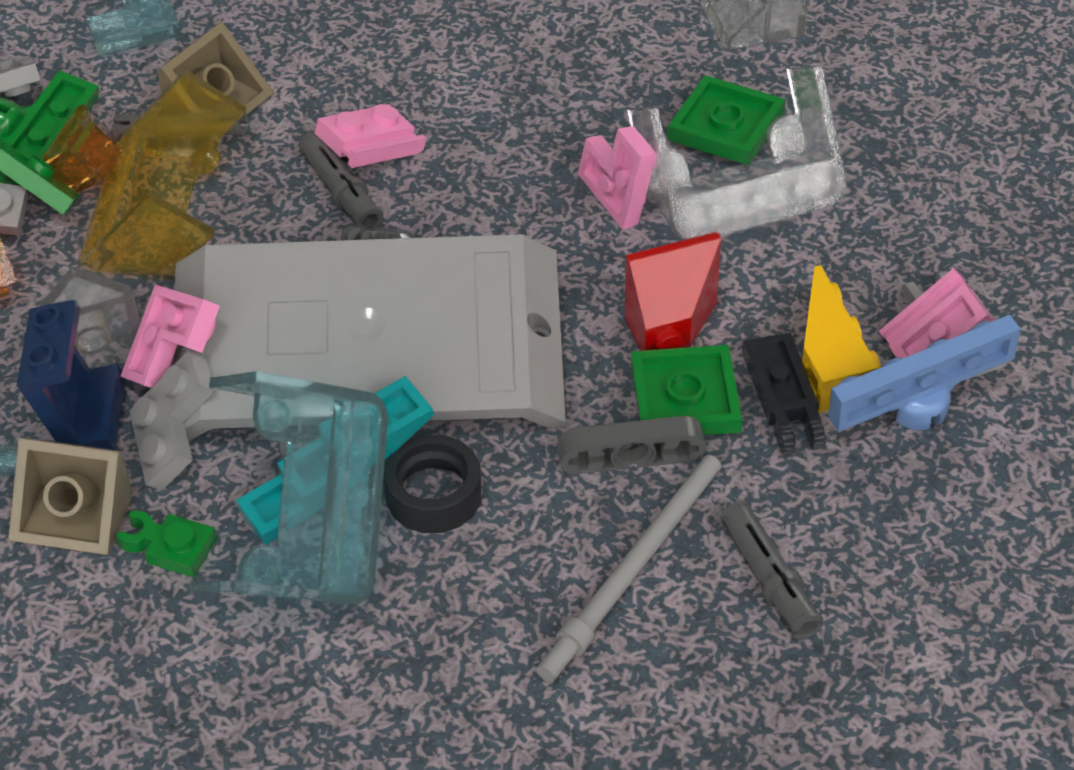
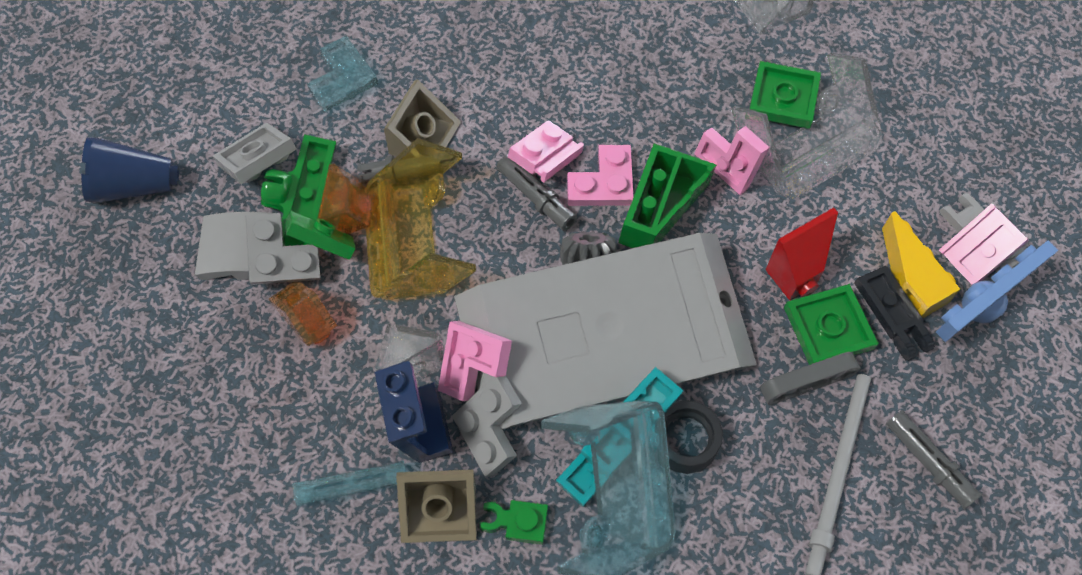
camera: 15 degrees left, 15 degrees up
(442, 192) = (607, 187): none -> bright pink plate
(512, 194) = (663, 195): none -> green wedge

